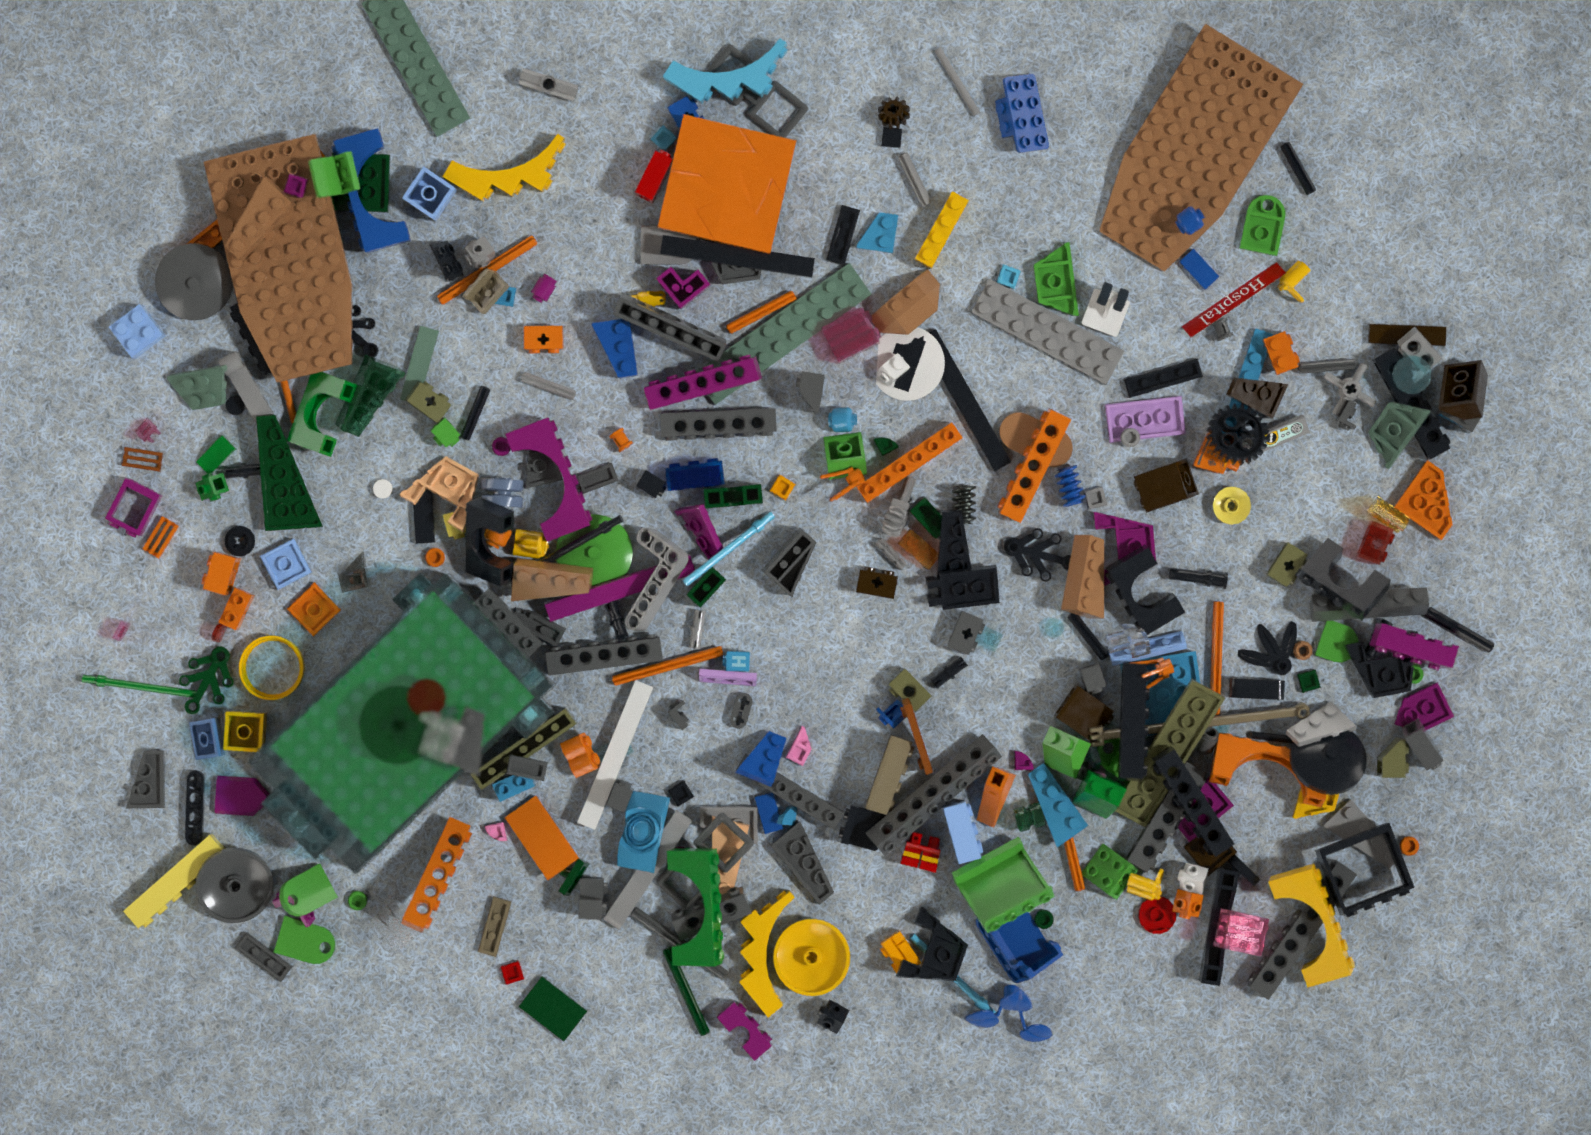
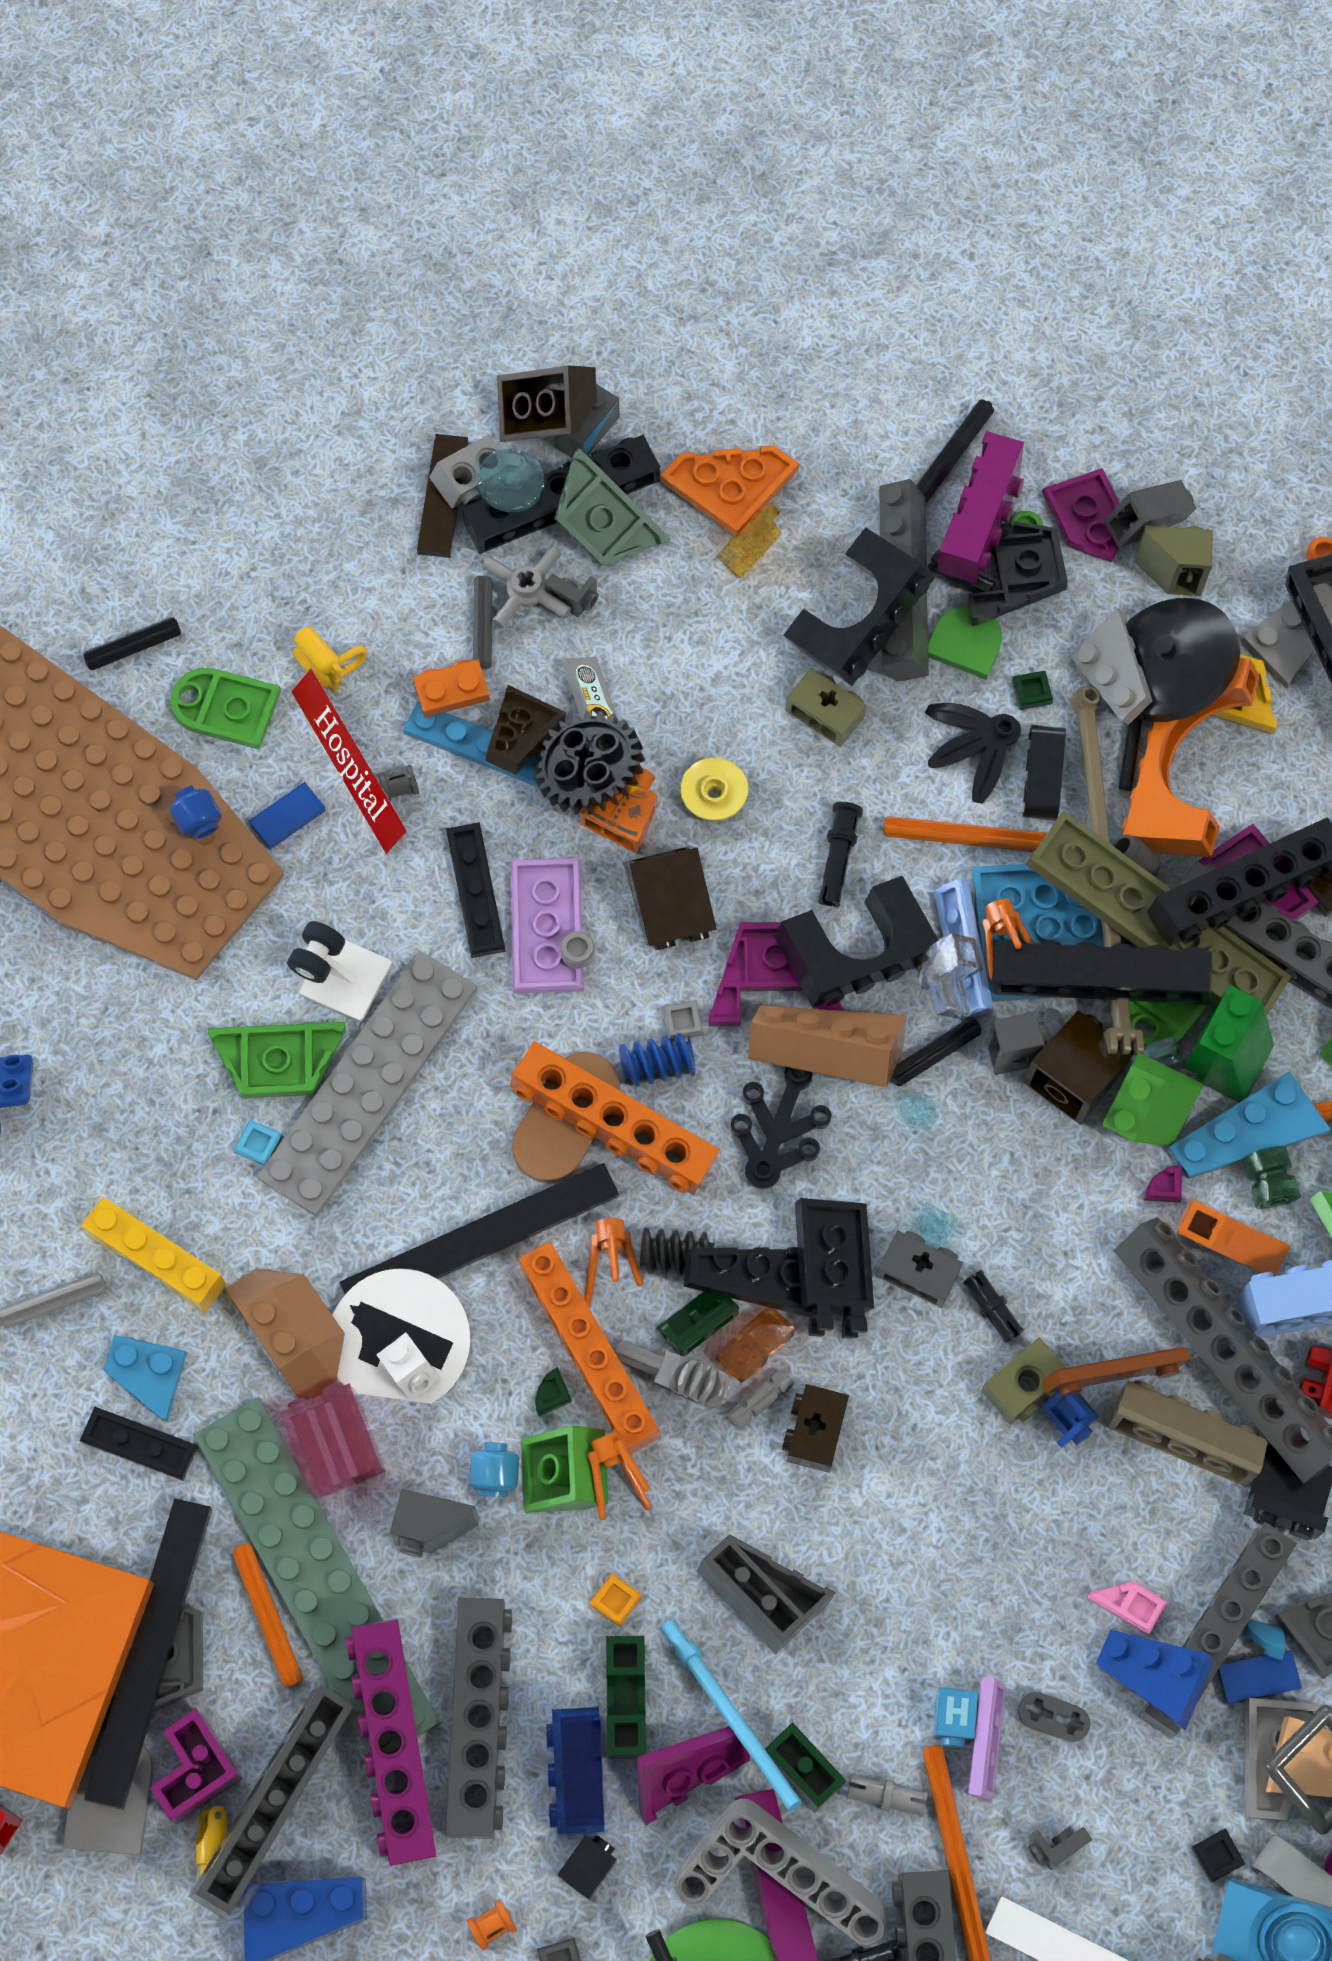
camera: 90 degrees left, 20 degrees down
(970, 469) = (611, 1238): none -> orange plant
(1308, 653) = (981, 686): medium nougat plate -> none
(1374, 532) = (808, 577): clear red brick -> none

